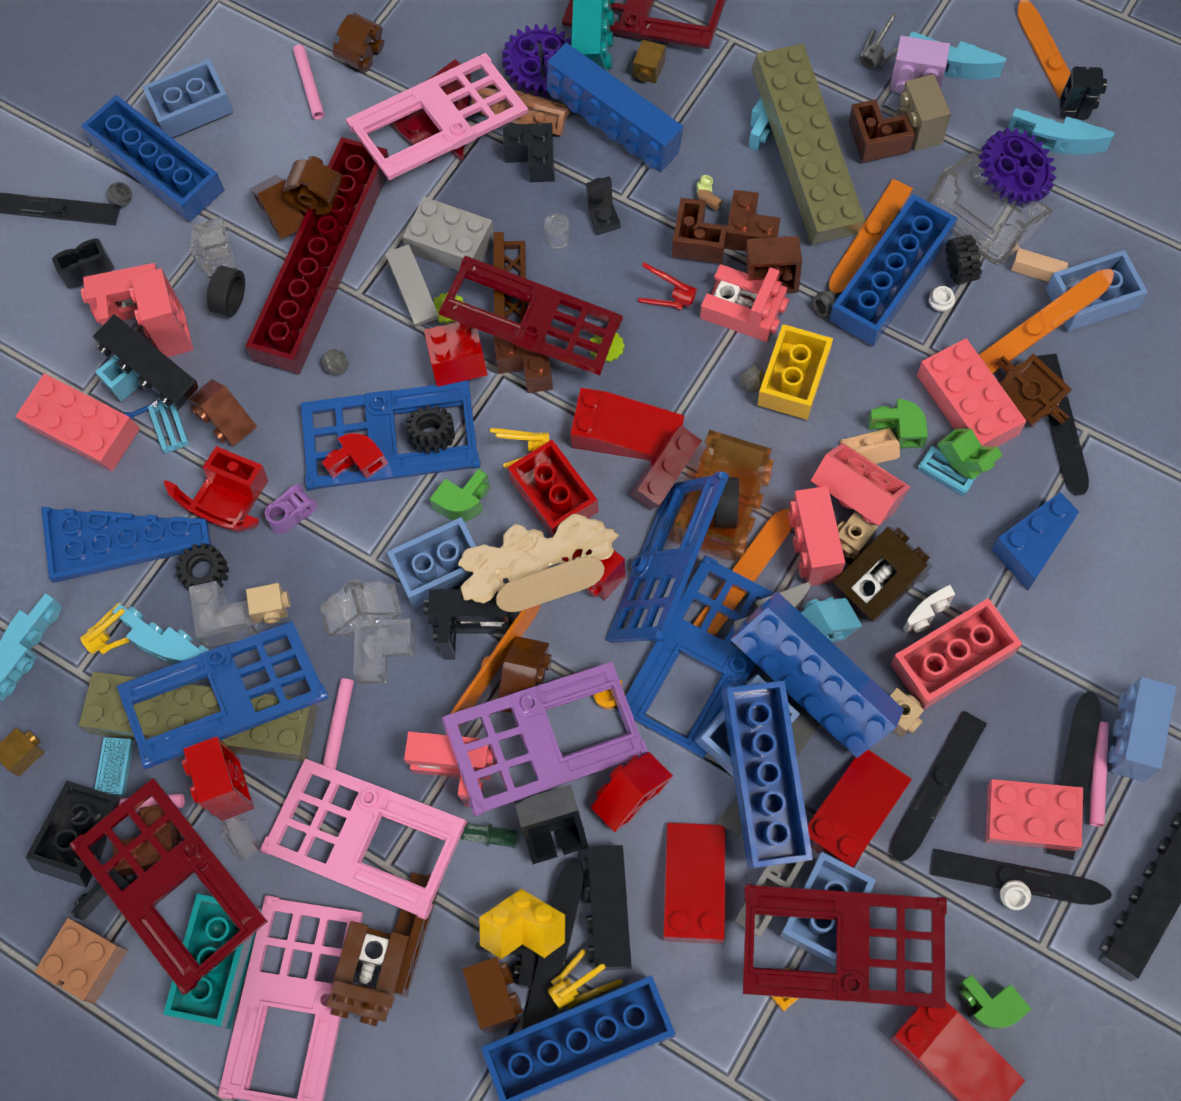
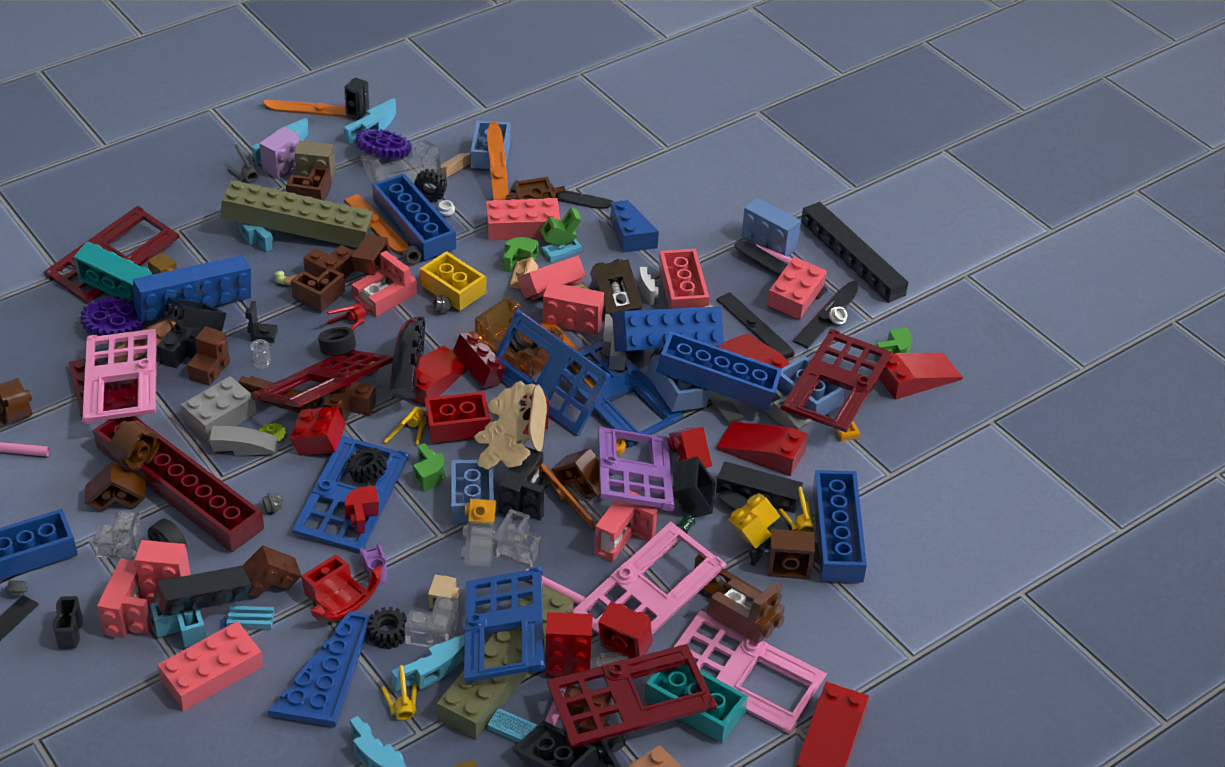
camera: 75 degrees left, 25 degrees down
(266, 837) = (625, 630): none -> red brick
(388, 588) = (481, 510): none -> light orange brick
(520, 186) = (211, 356): none -> copper brick
(579, 122) = (194, 314): none -> black window
(606, 383) = (406, 358): none -> black brick
(616, 311) = (337, 341): none -> black tyre

